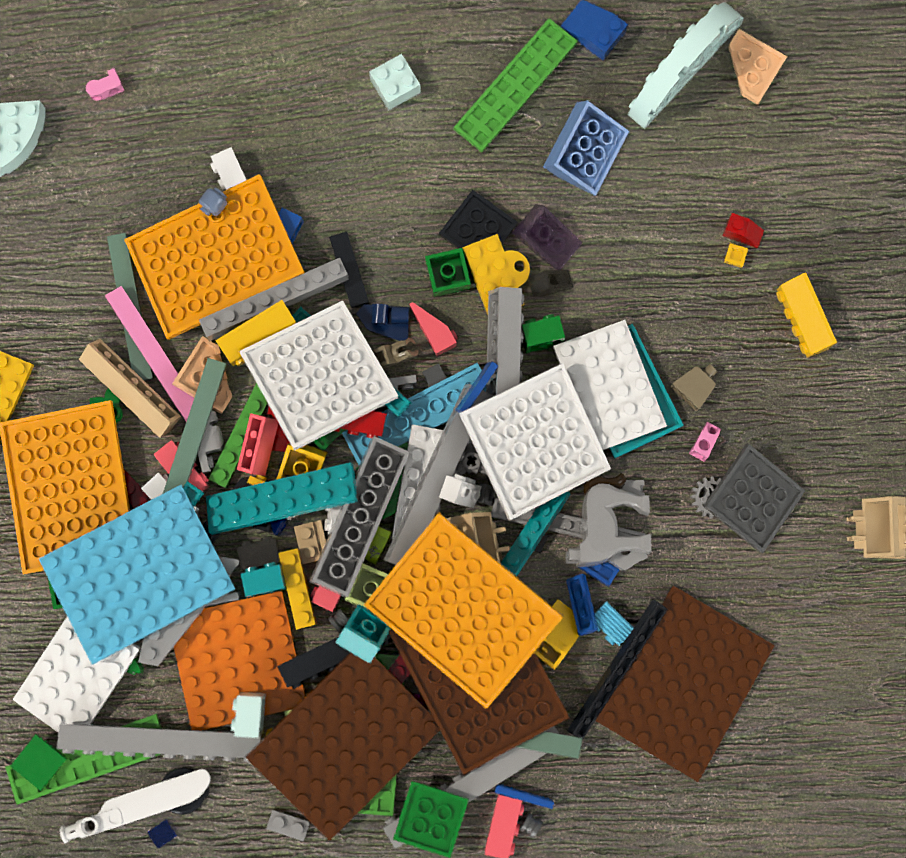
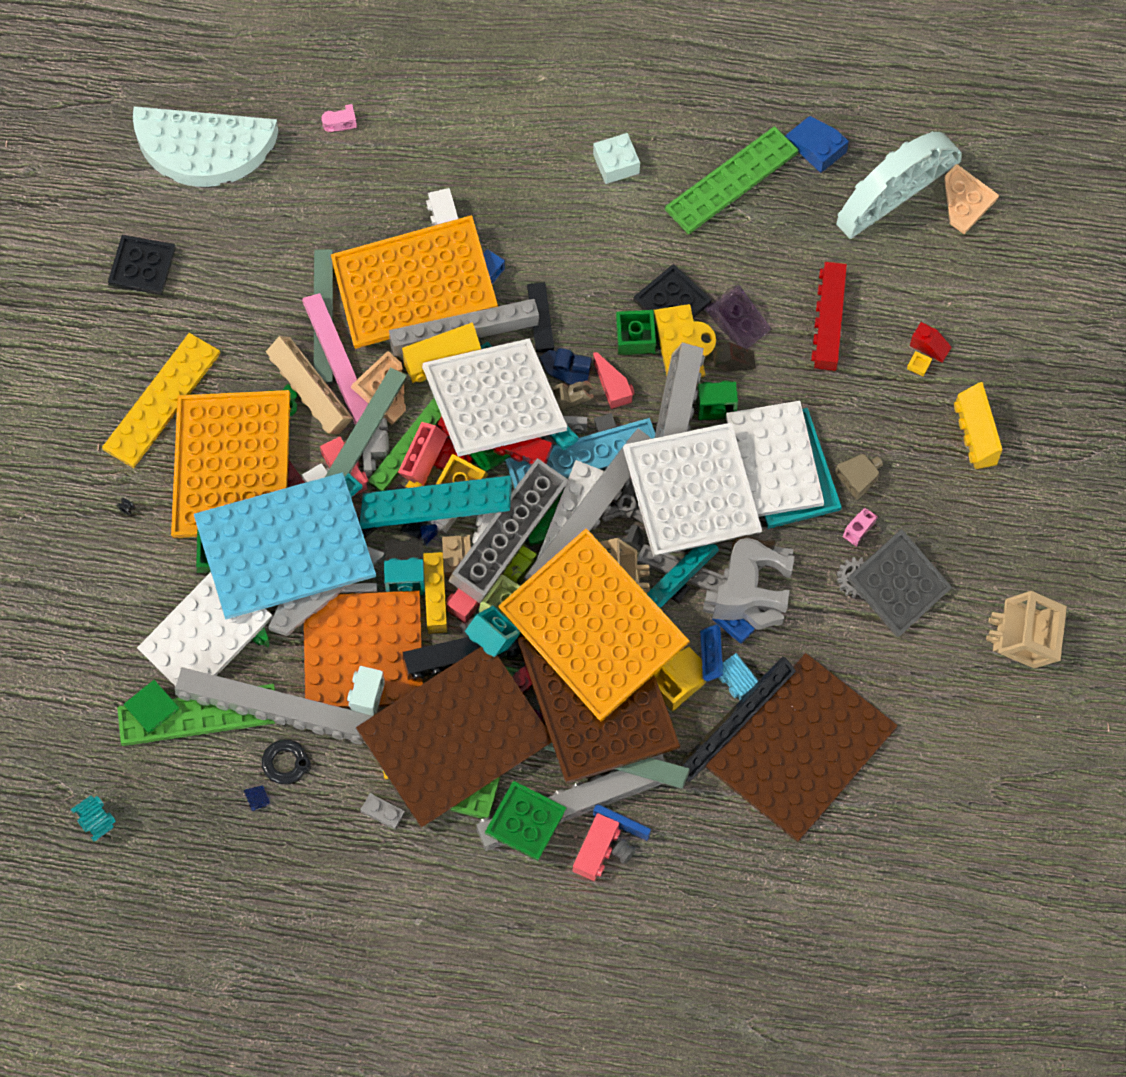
camera: 10 degrees right, 15 degrees down
(141, 804) = (241, 764): white piece -> none
(213, 202) = (422, 231): sand blue head -> none
(460, 490) = (610, 523): white brick -> none
(477, 386) = (647, 427): blue tile -> none
(586, 147) = (790, 245): medium blue slope -> none
(639, 219) = (830, 316): none -> red brick

